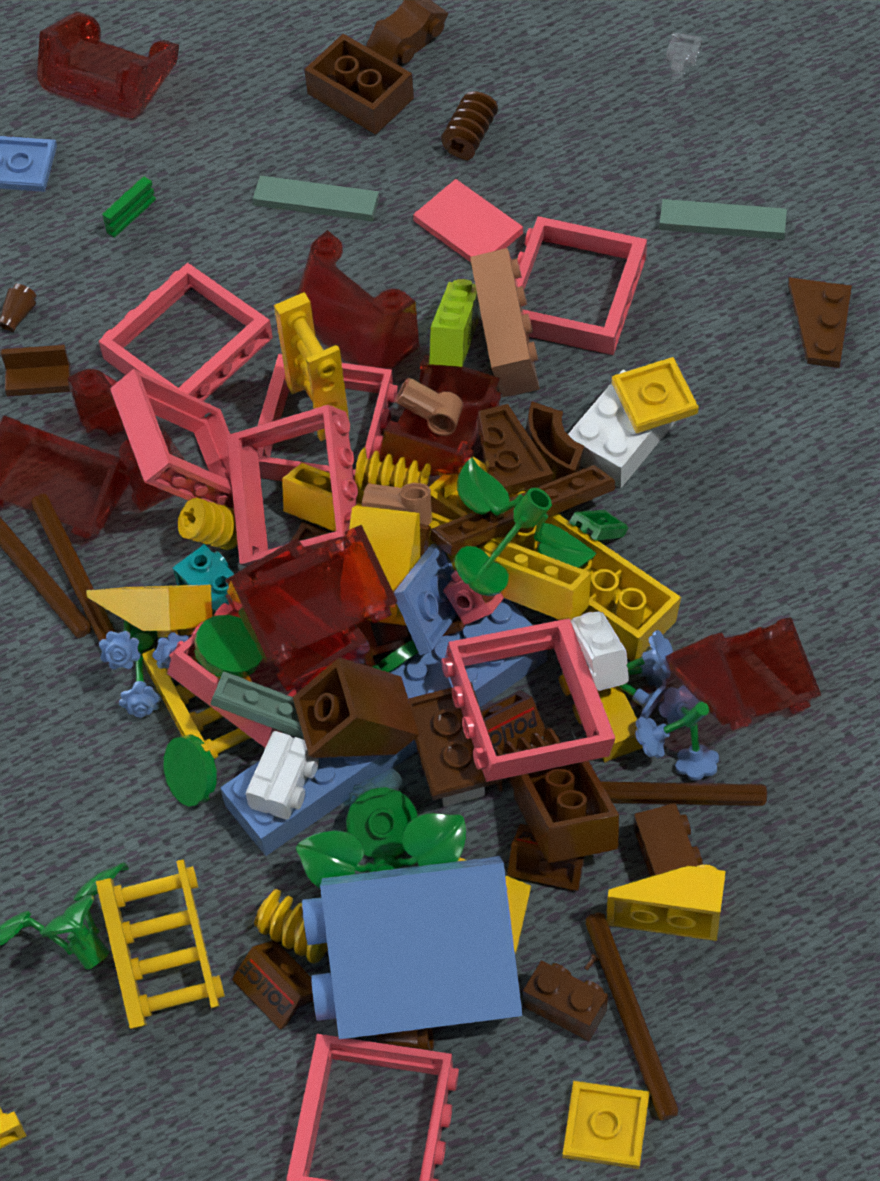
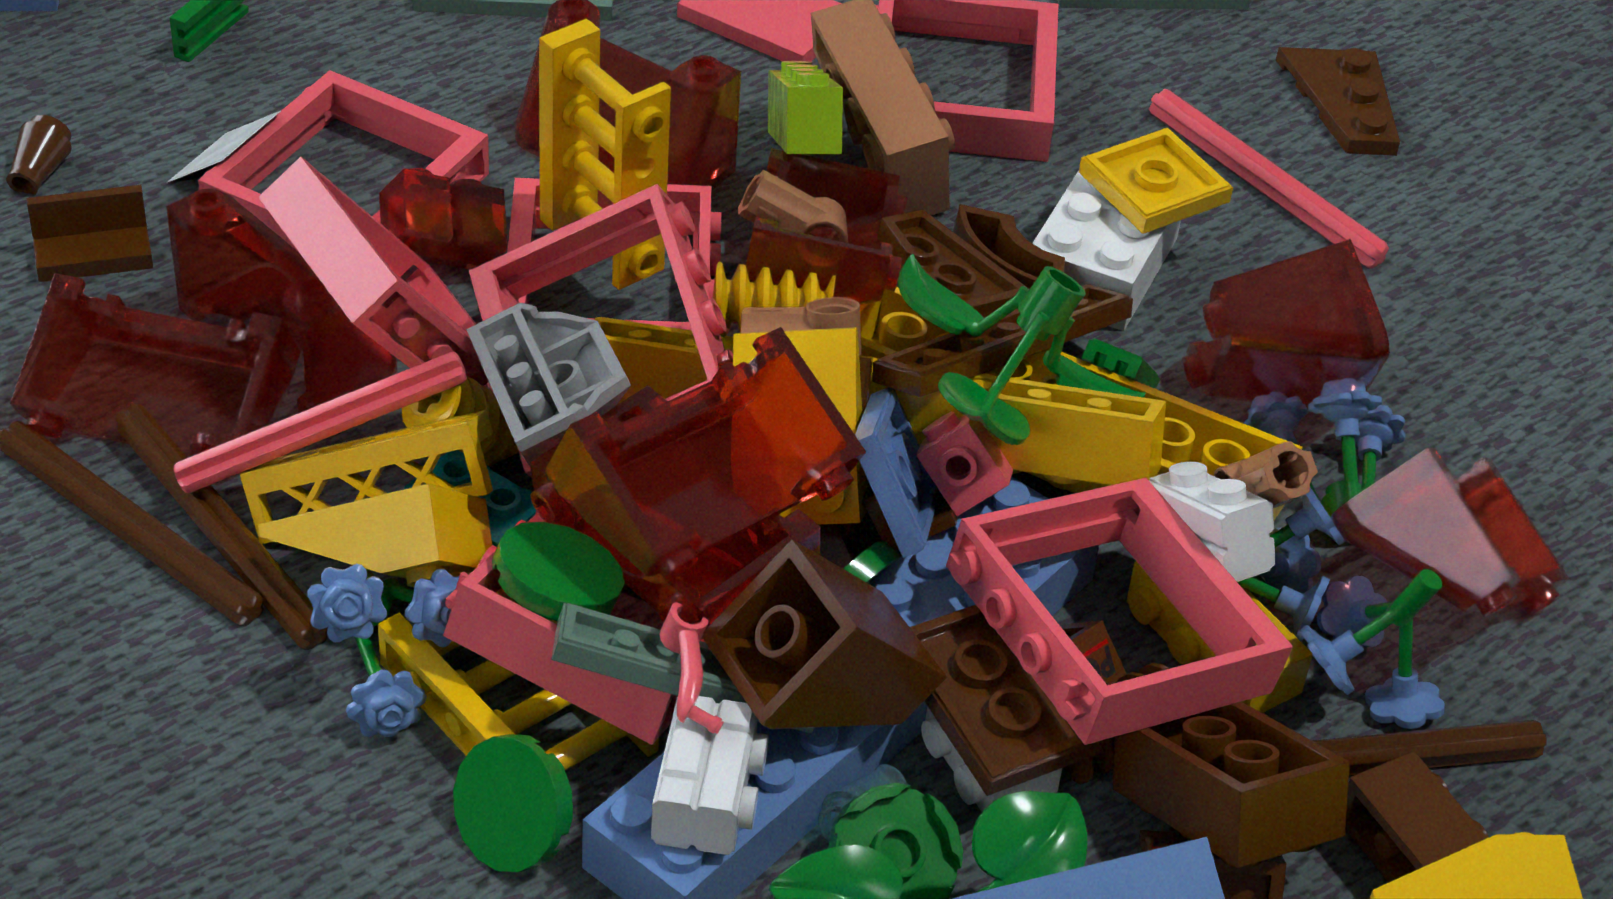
camera: 20 degrees left, 15 degrees down
(120, 312) = (223, 146): none -> white sticker
(130, 527) = (320, 422): none -> coral axle
(155, 549) = (373, 453): none -> yellow fence
(230, 383) = (444, 221): none -> clear red piece
(248, 519) = (547, 372): none -> light grey wedge
(281, 702) = (684, 640): none -> coral piece
(633, 629) = (1274, 474): none -> nougat piece
(690, 523) = (1290, 329): none -> clear red windscreen
(710, 574) = (1358, 422): none -> medium blue plant
(746, 382) = (1267, 177): none -> coral axle

